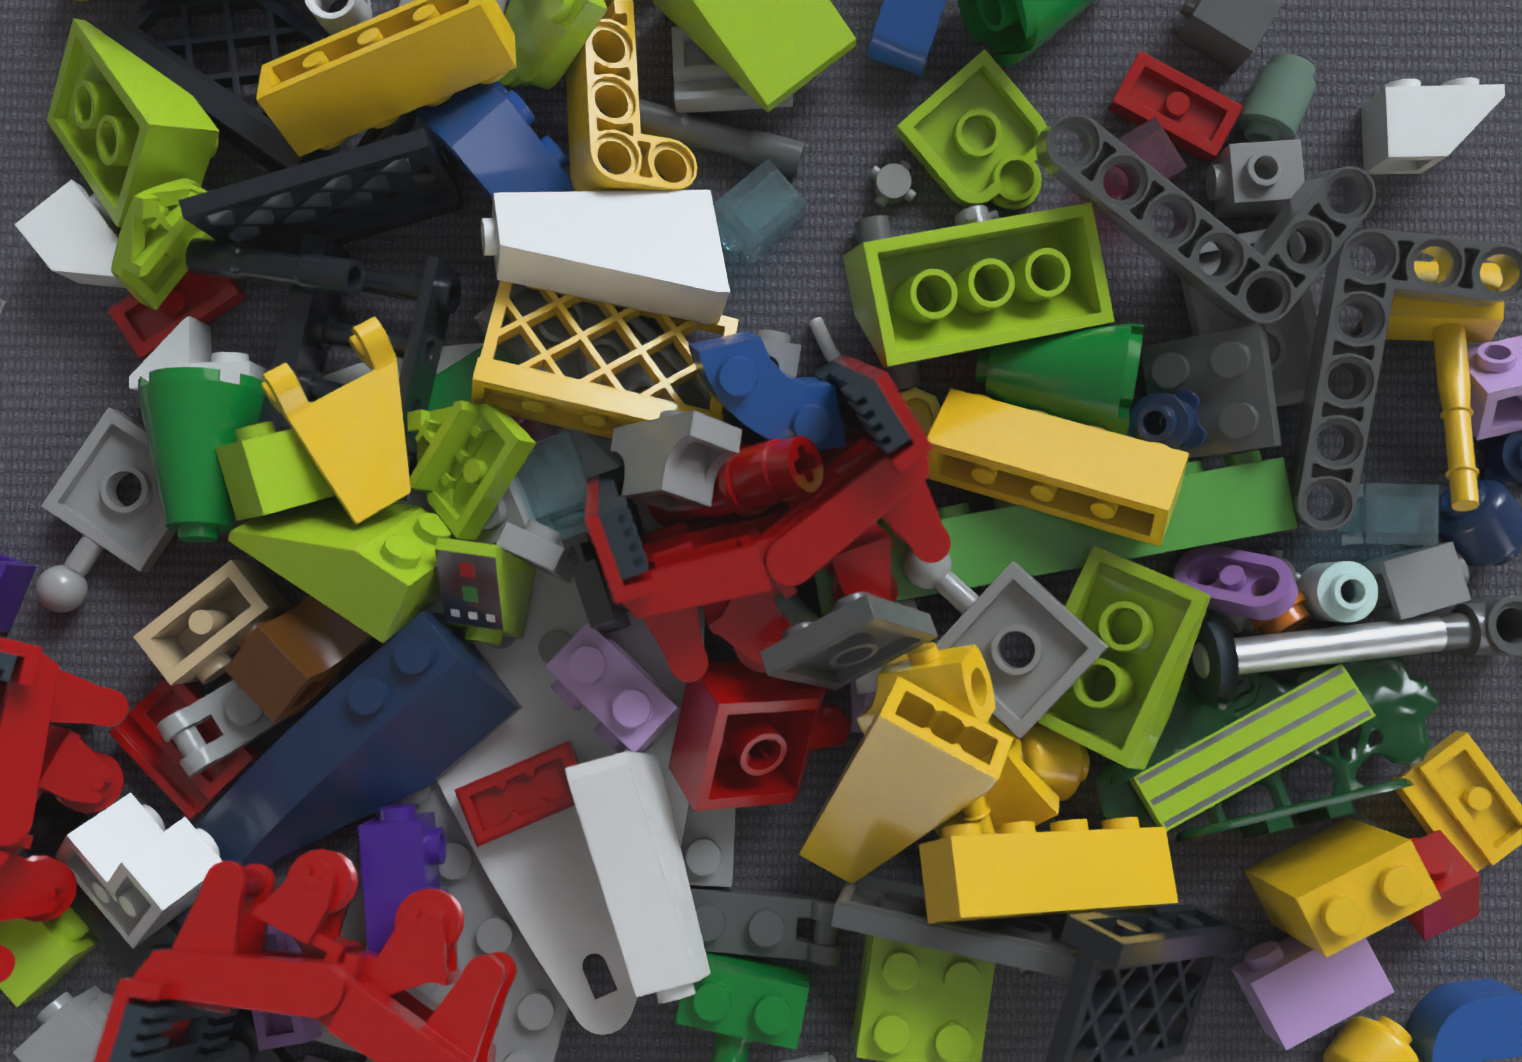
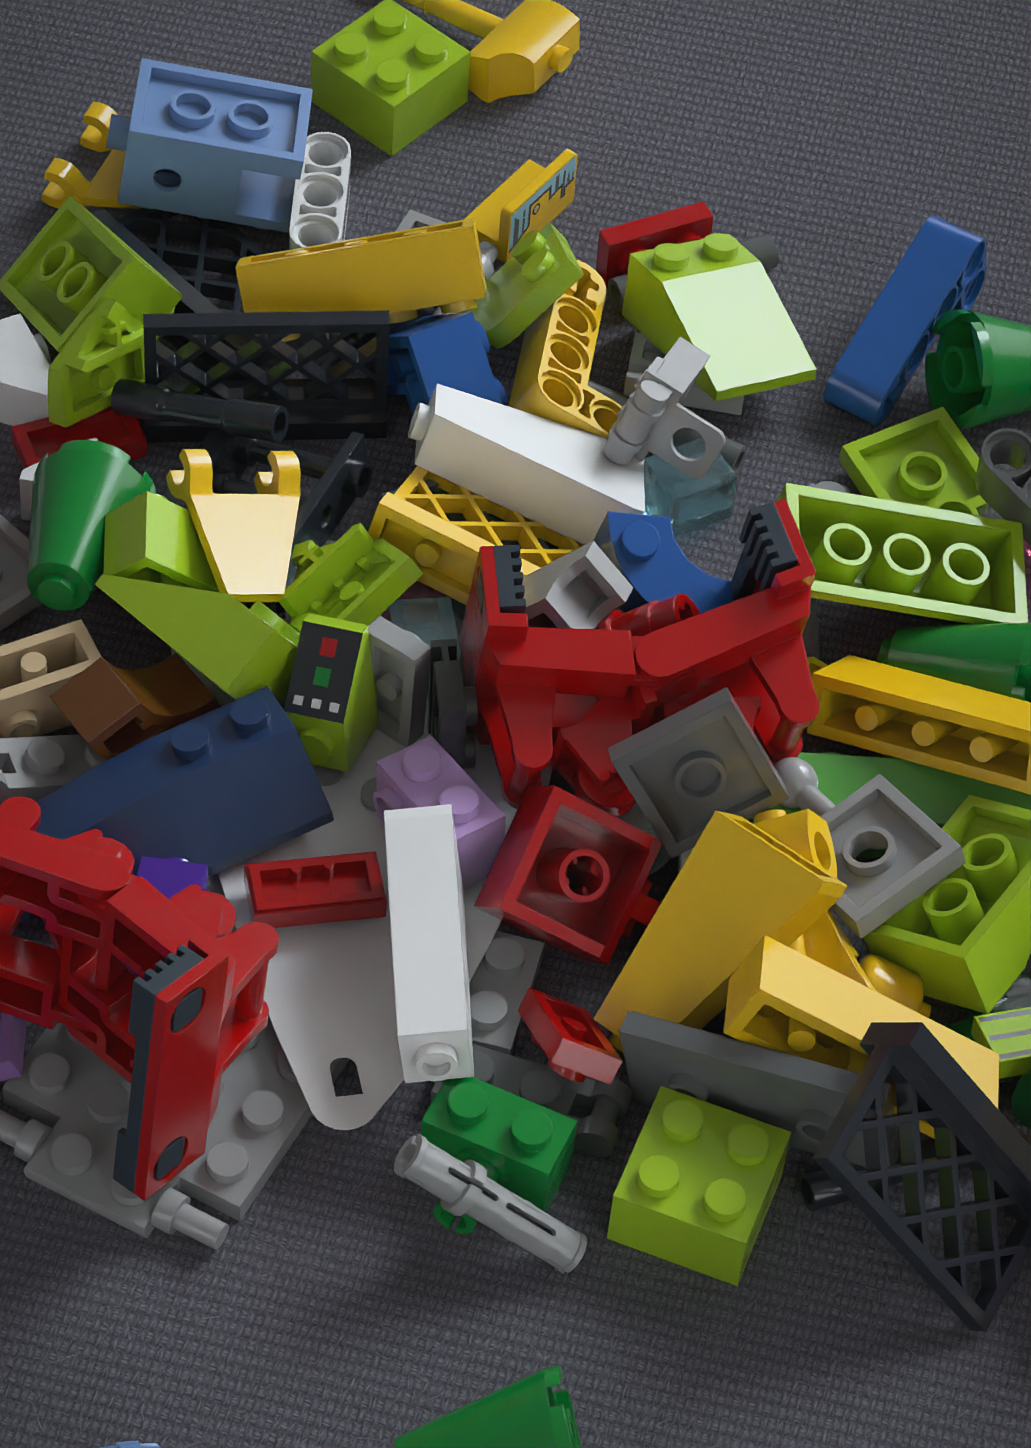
camera: 10 degrees right, 35 degrees down
(711, 161) = (657, 413): none -> light grey piece
(782, 887) = (569, 1038): none -> red plate

